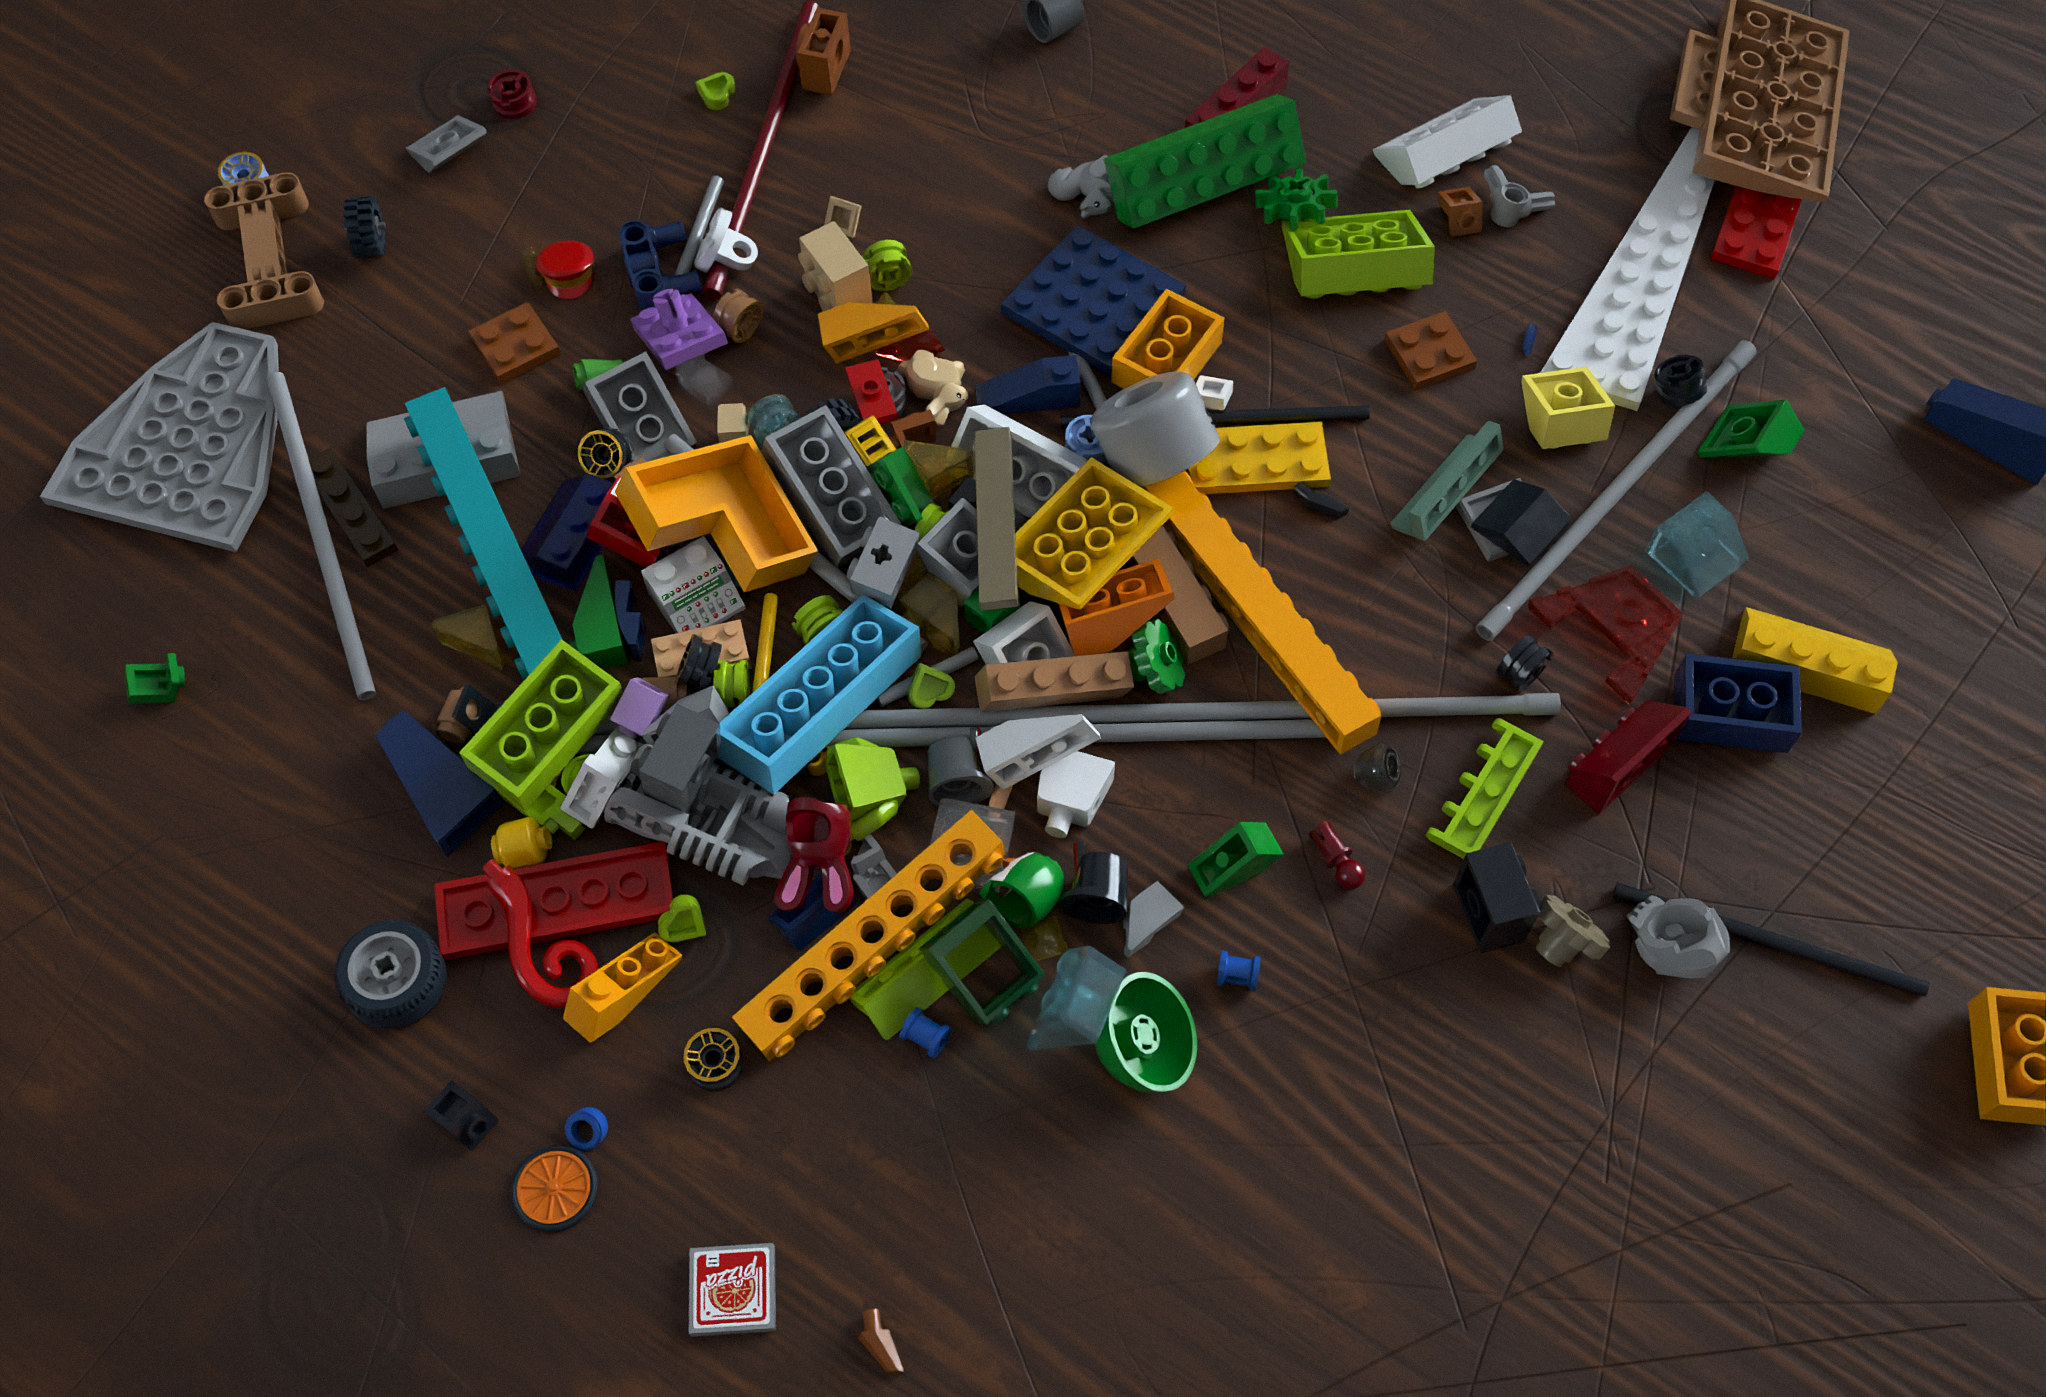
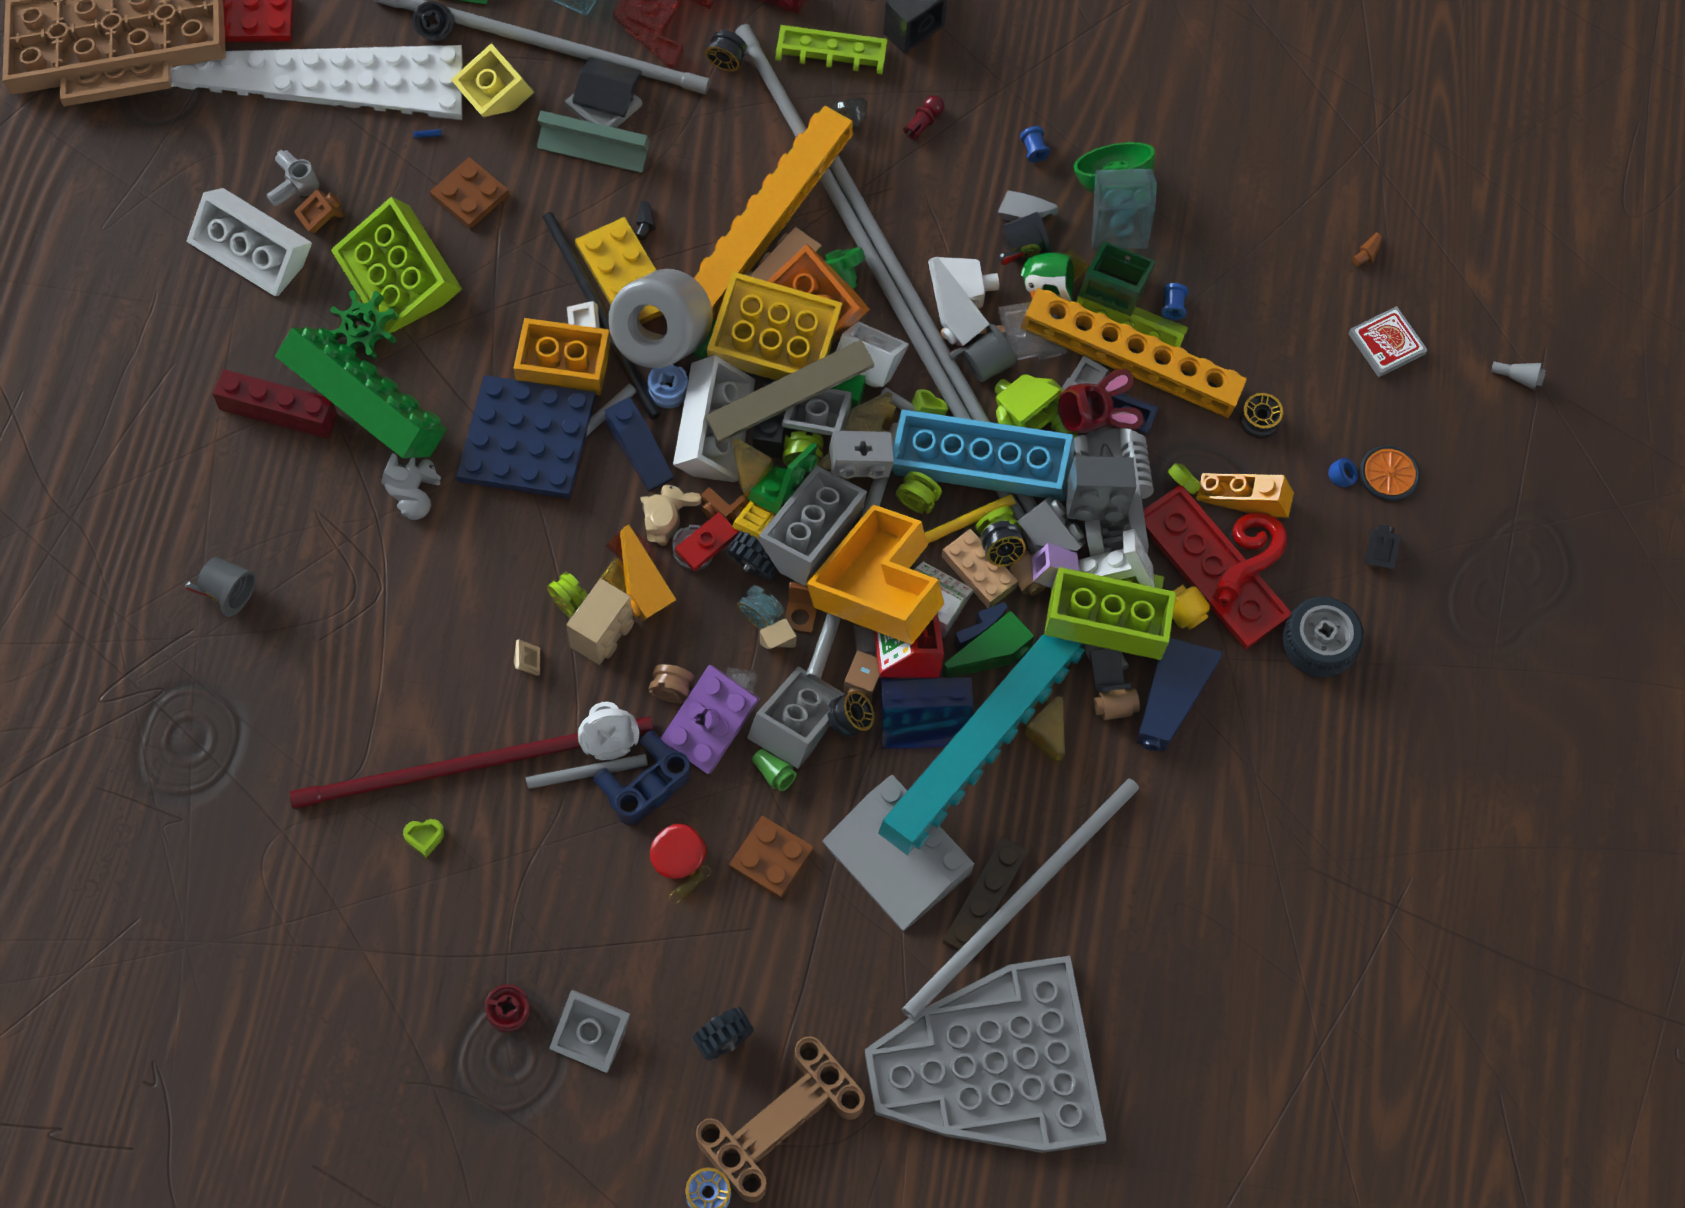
camera: 120 degrees left, 5 degrees up
(154, 681) = (1207, 940): green bracket -> none
(823, 50) = (357, 745): dark orange brick -> none
(1053, 681) = (897, 316): medium nougat brick -> none
(1235, 857) = (959, 170): green slope -> none

